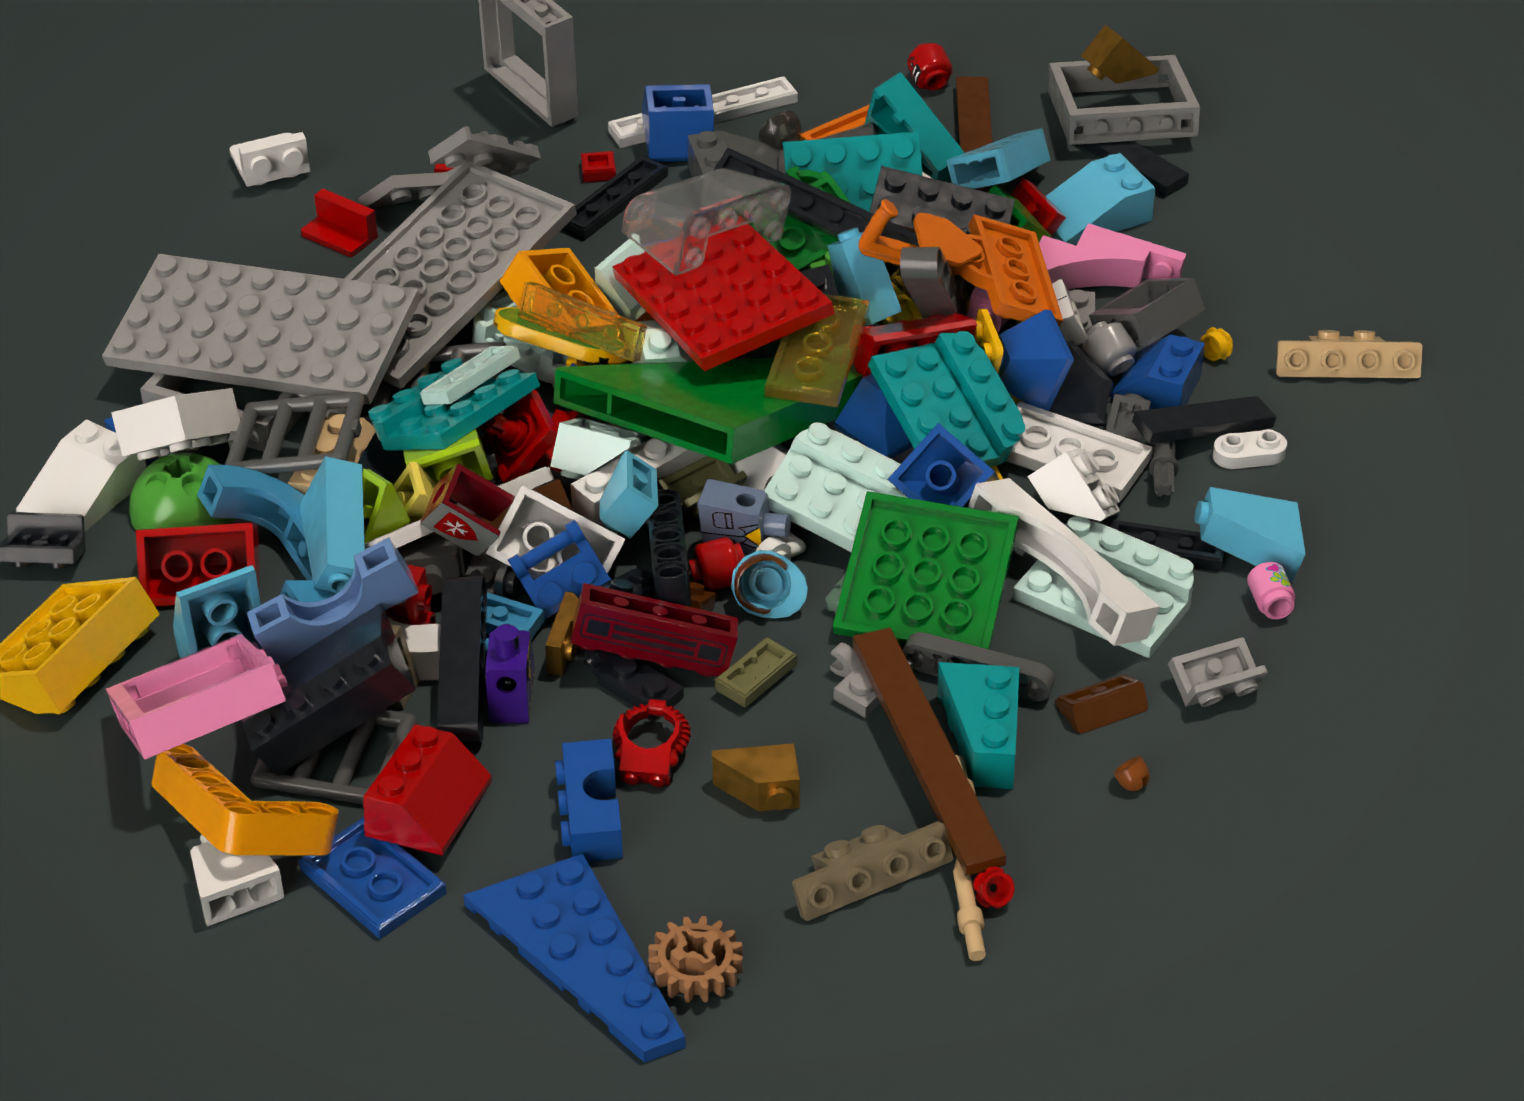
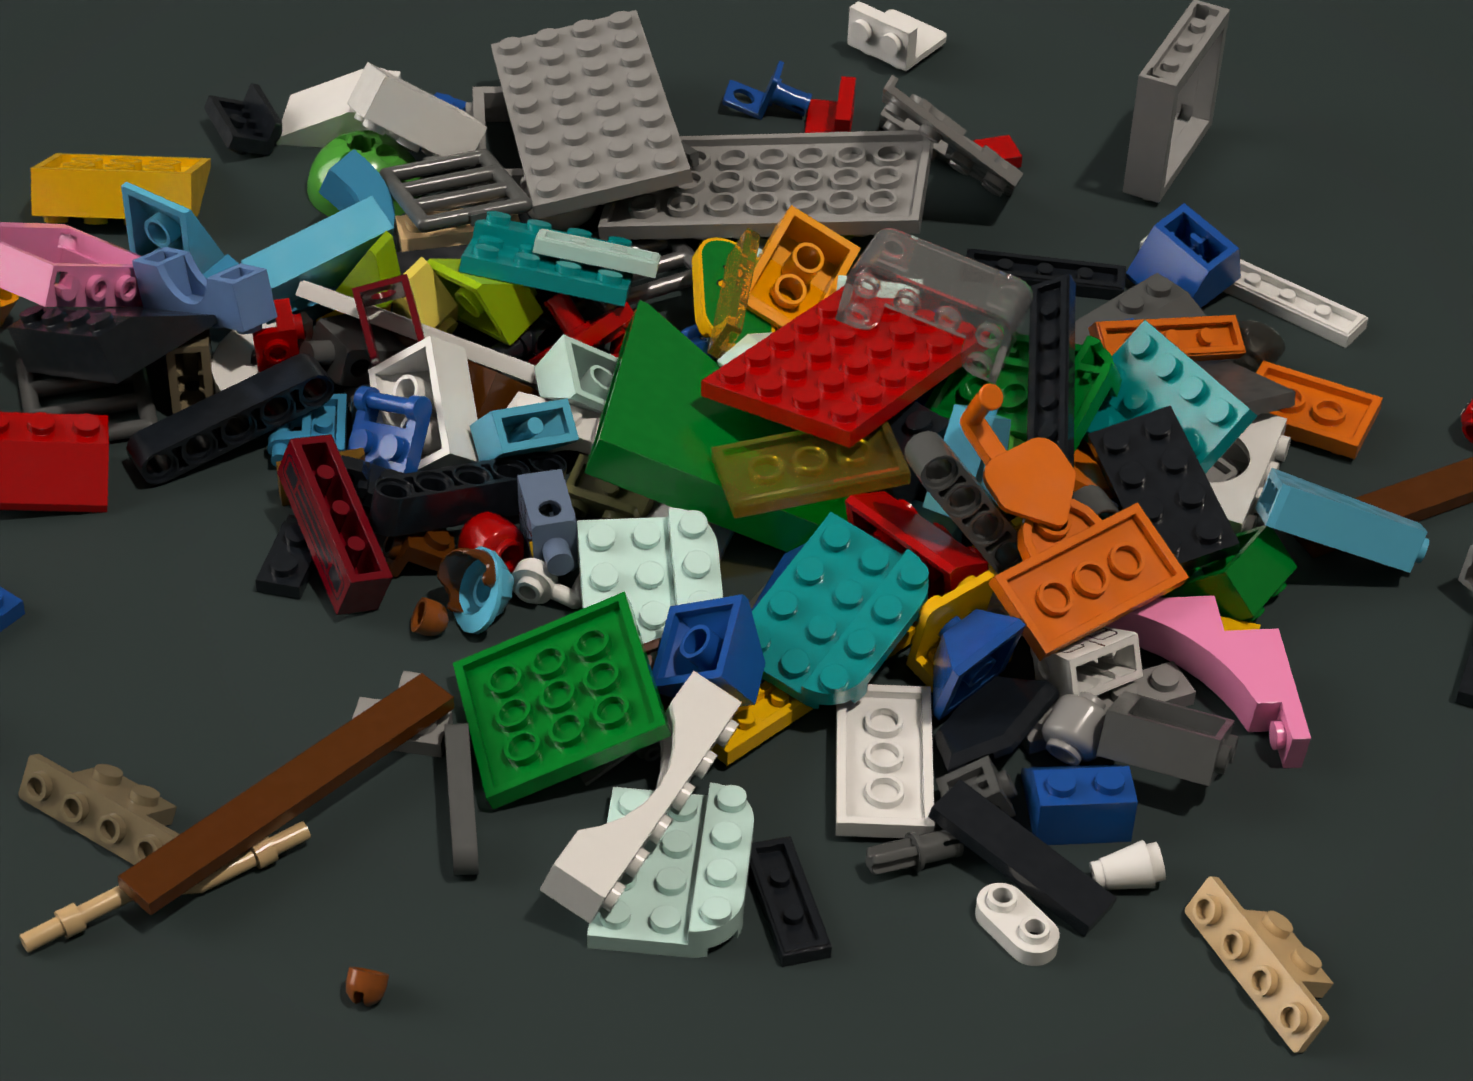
camera: 60 degrees right, 0 degrees up
(192, 555) = (265, 205): red slope -> none
(284, 243) = (775, 93): none -> blue bracket
(509, 656) = (229, 456): dark purple torso -> none
(592, 823) = (122, 561): blue arch -> none
(598, 166) = (1086, 245): red tile -> none
(649, 764) = (189, 570): red piece -> none
(755, 672) = (353, 632): olive plate -> none
(759, 776) = (194, 689): pearl gold slope -> none
(761, 625) = (429, 617): none -> dark orange hinge
(770, 144) = (1198, 337): none -> orange tile
(900, 109) = (1321, 420): teal wedge -> none
(983, 717) = (368, 829): teal wedge -> none
(1004, 887) = (112, 921): red plate -> none
(1038, 206) = (1303, 586): red plate -> none
(1074, 487) = (788, 774): white slope -> none
(1103, 703) = (478, 926): reddish brown slope -> none
(1104, 195) = (1368, 640): medium azure slope -> none
(1215, 672) = (576, 1004): light grey bracket -> none
(1217, 344) = (1187, 831): yellow plate -> none
(1237, 376) = (1130, 868): none -> white cone
(1252, 528) = (844, 962): medium azure slope -> none
(1272, 590) = (754, 1014): bright pink brick -> none

